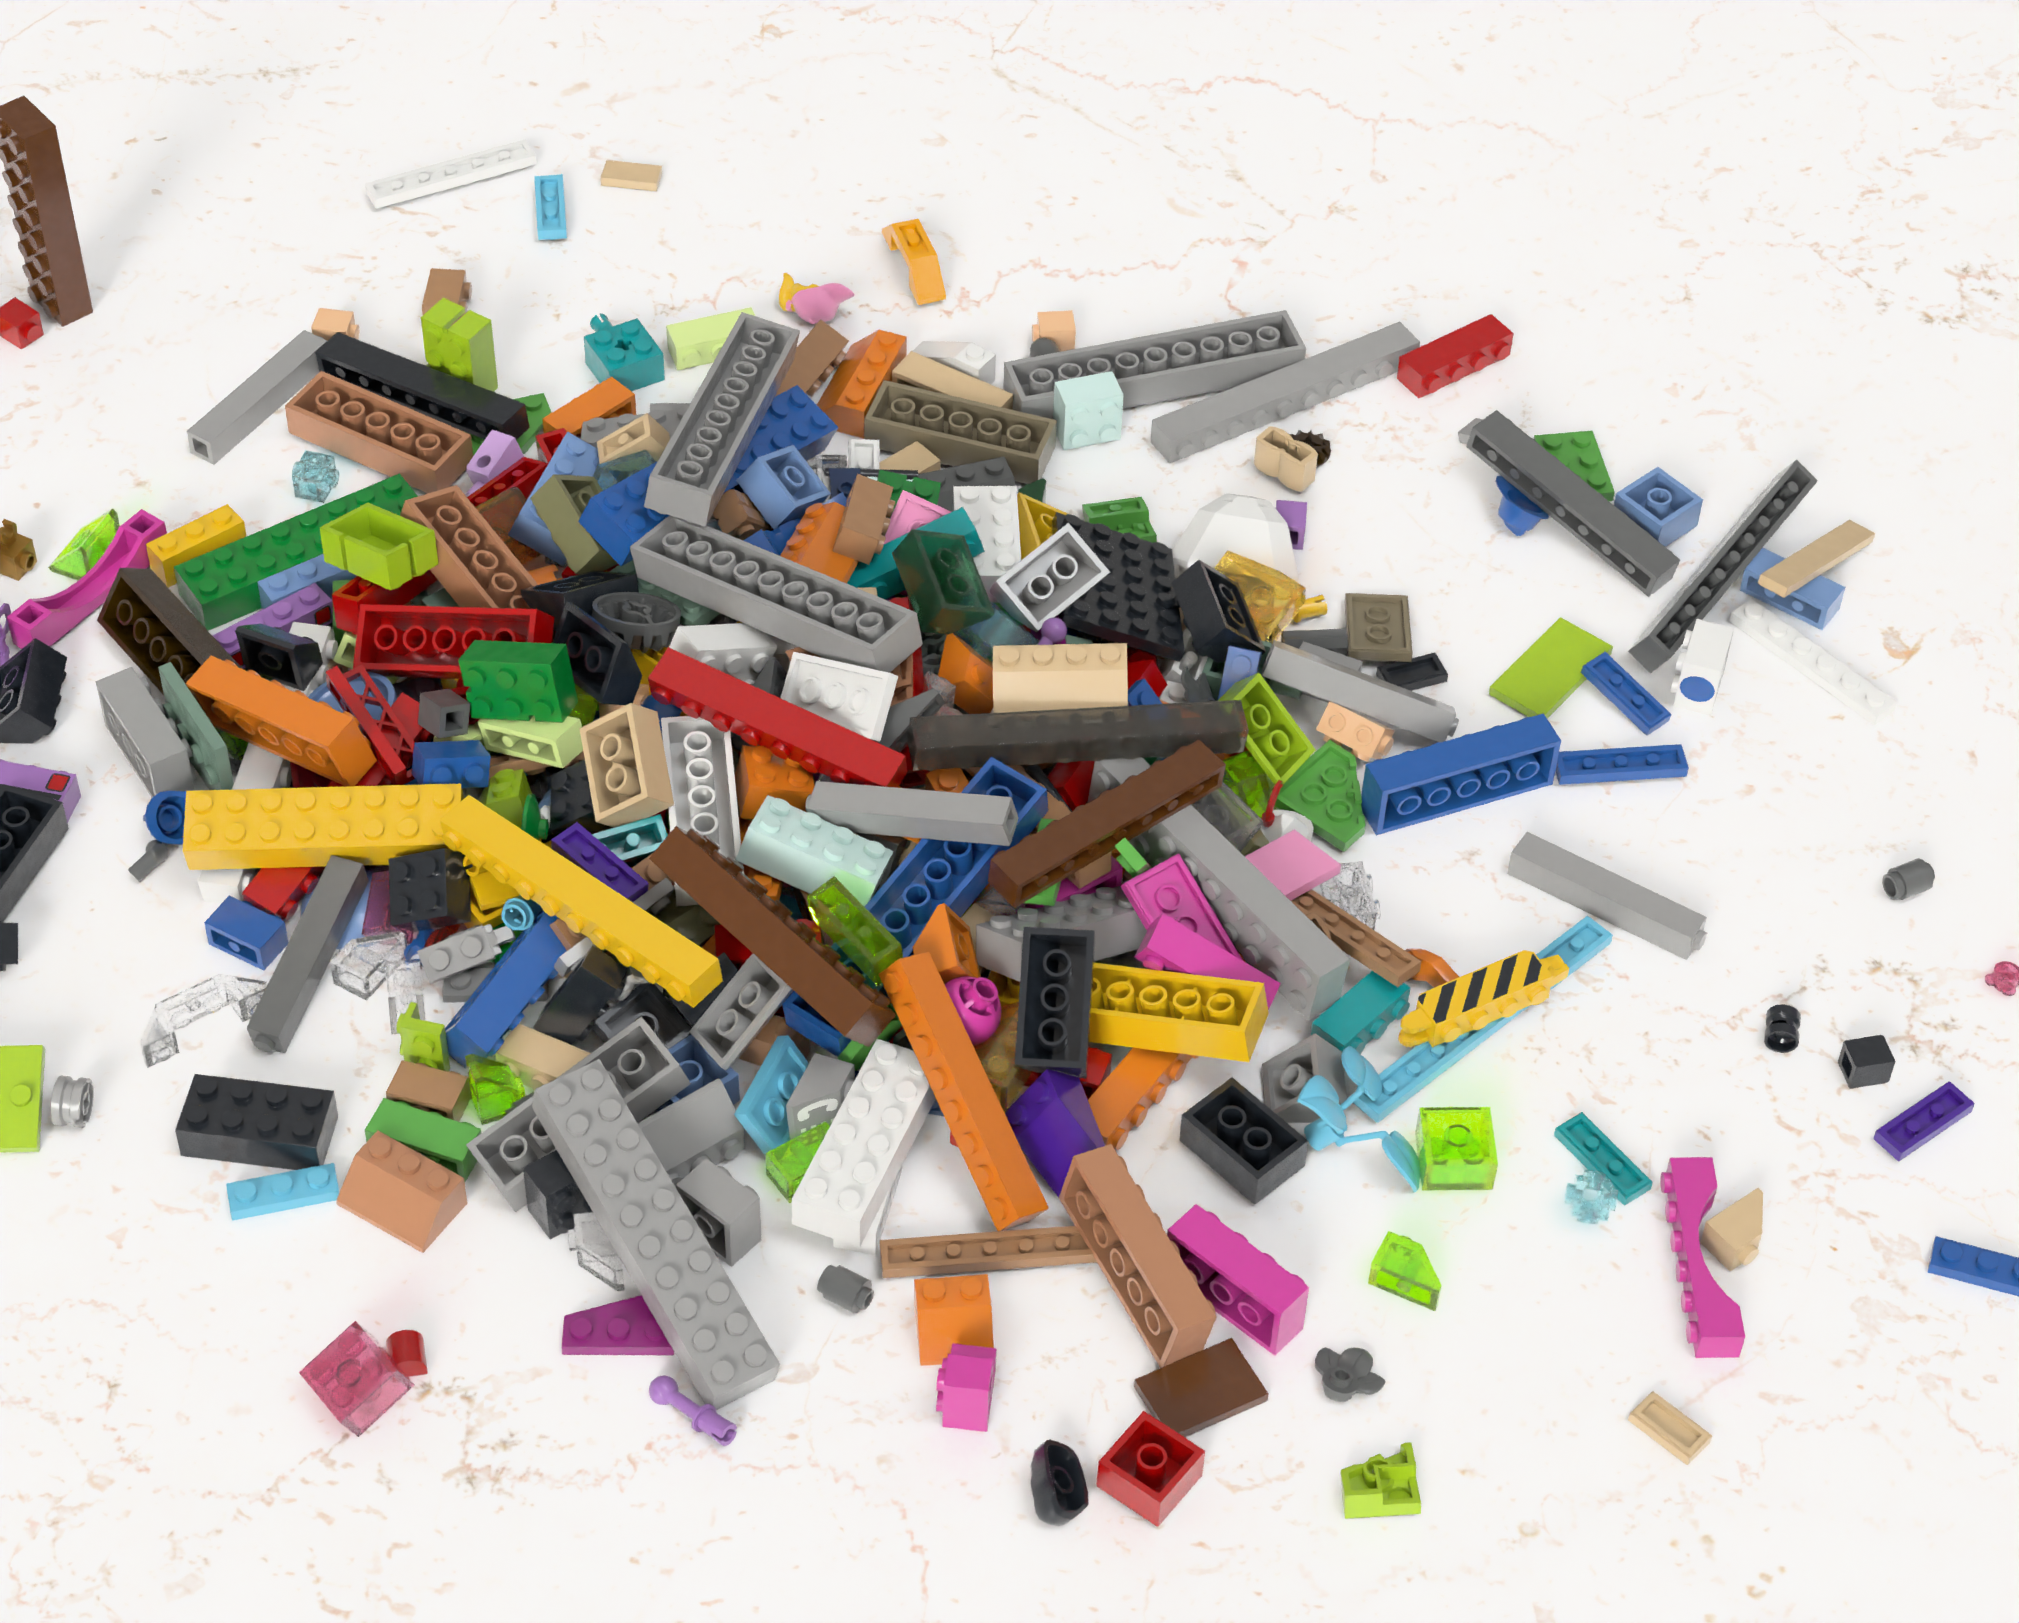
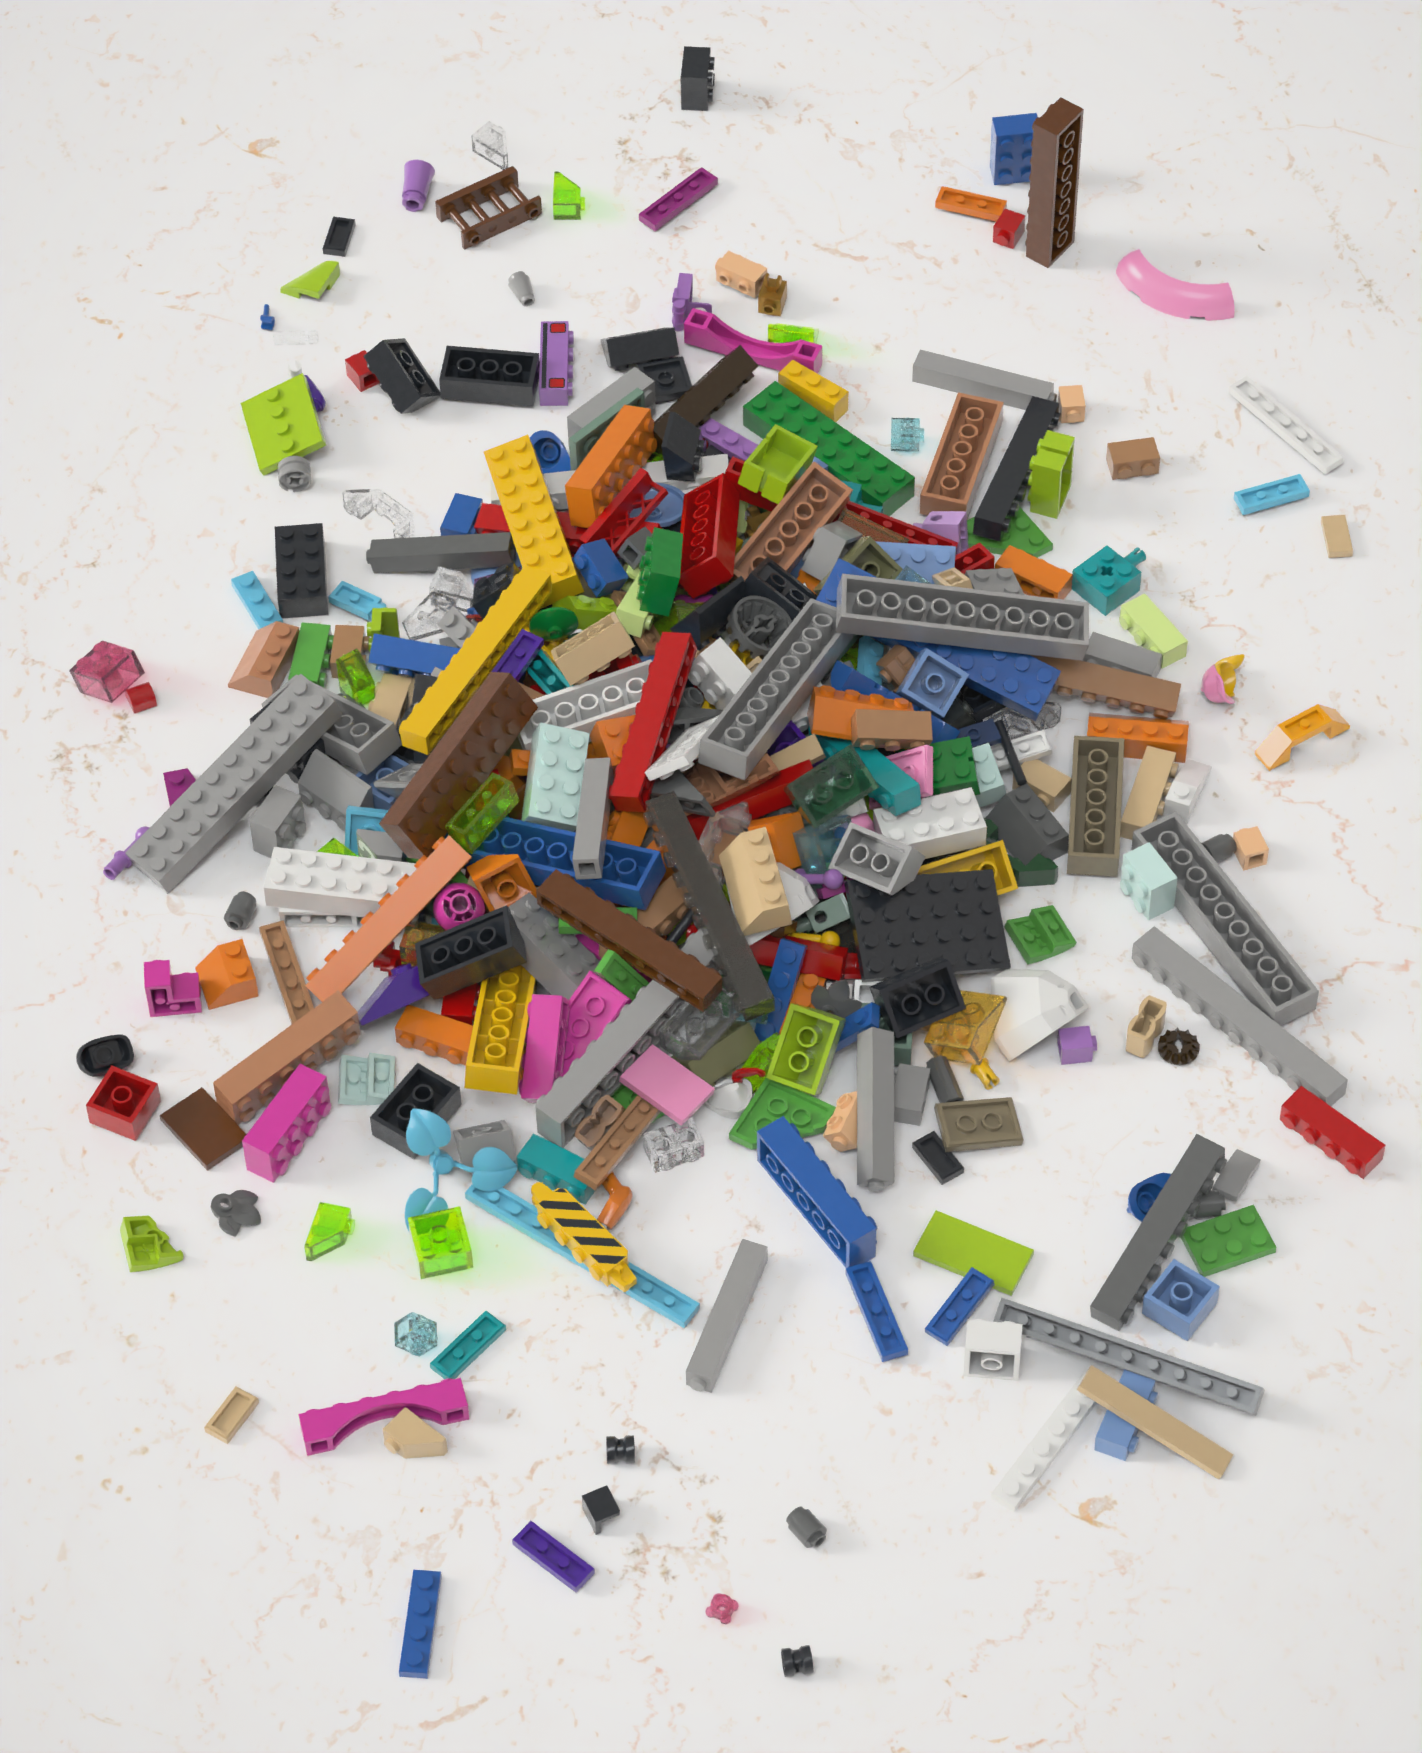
camera: 80 degrees right, 5 degrees up
(79, 685) = (669, 376): none -> black plate
(197, 218) = (1173, 295): none -> bright pink brick
(346, 1065) = (355, 600): none -> medium azure hinge
(528, 538) = (829, 544): none -> light grey brick
(1169, 1188) = (365, 1079): none -> light aqua slope

